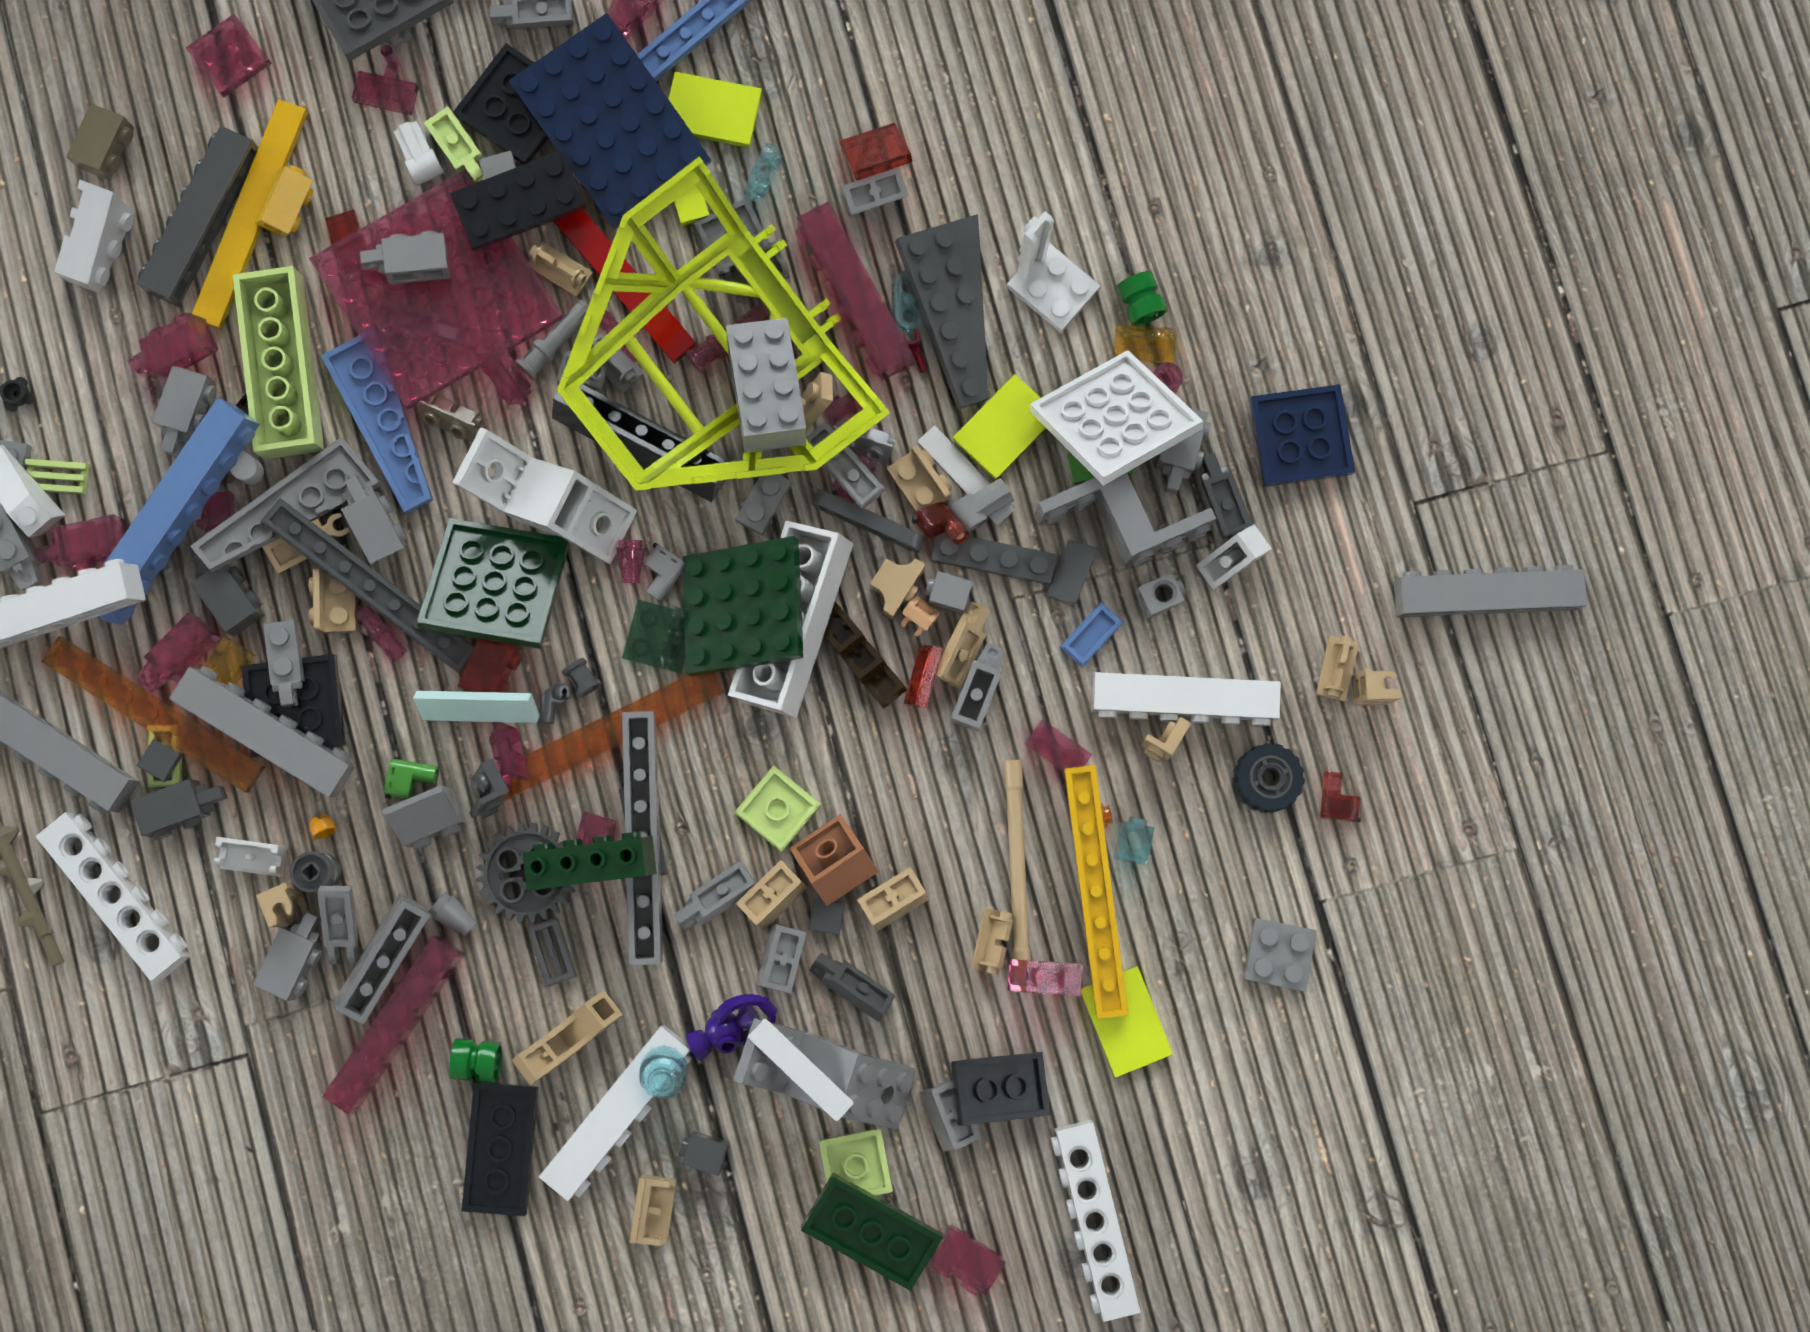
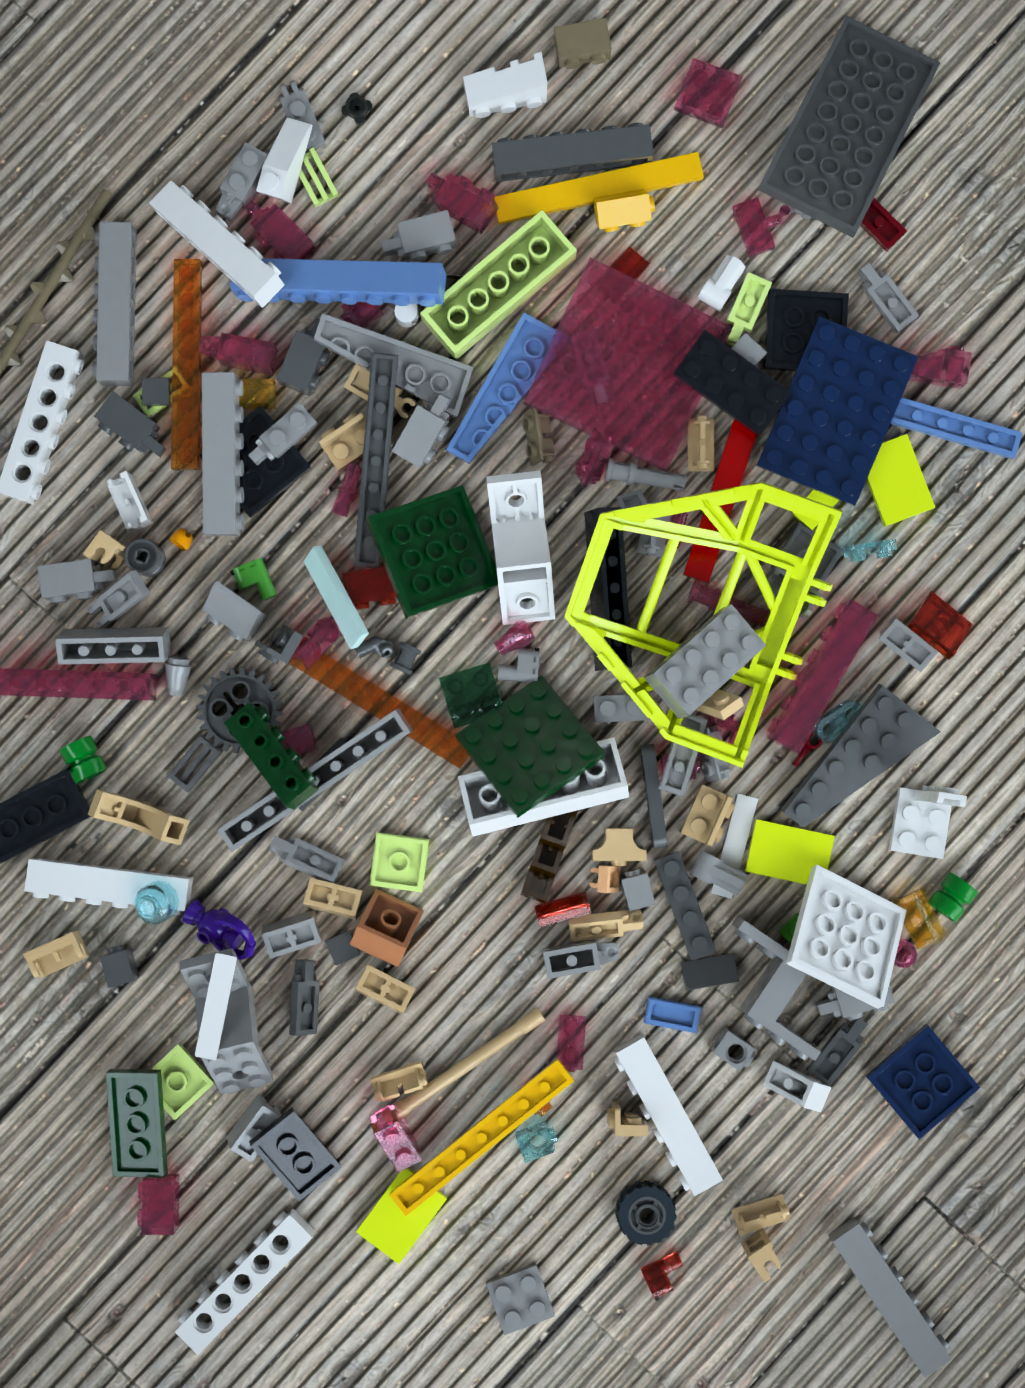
camera: 60 degrees right, 5 degrees up
(409, 258) = (637, 332): light grey hinge -> none
(940, 519) = (688, 849): clear red piece -> none

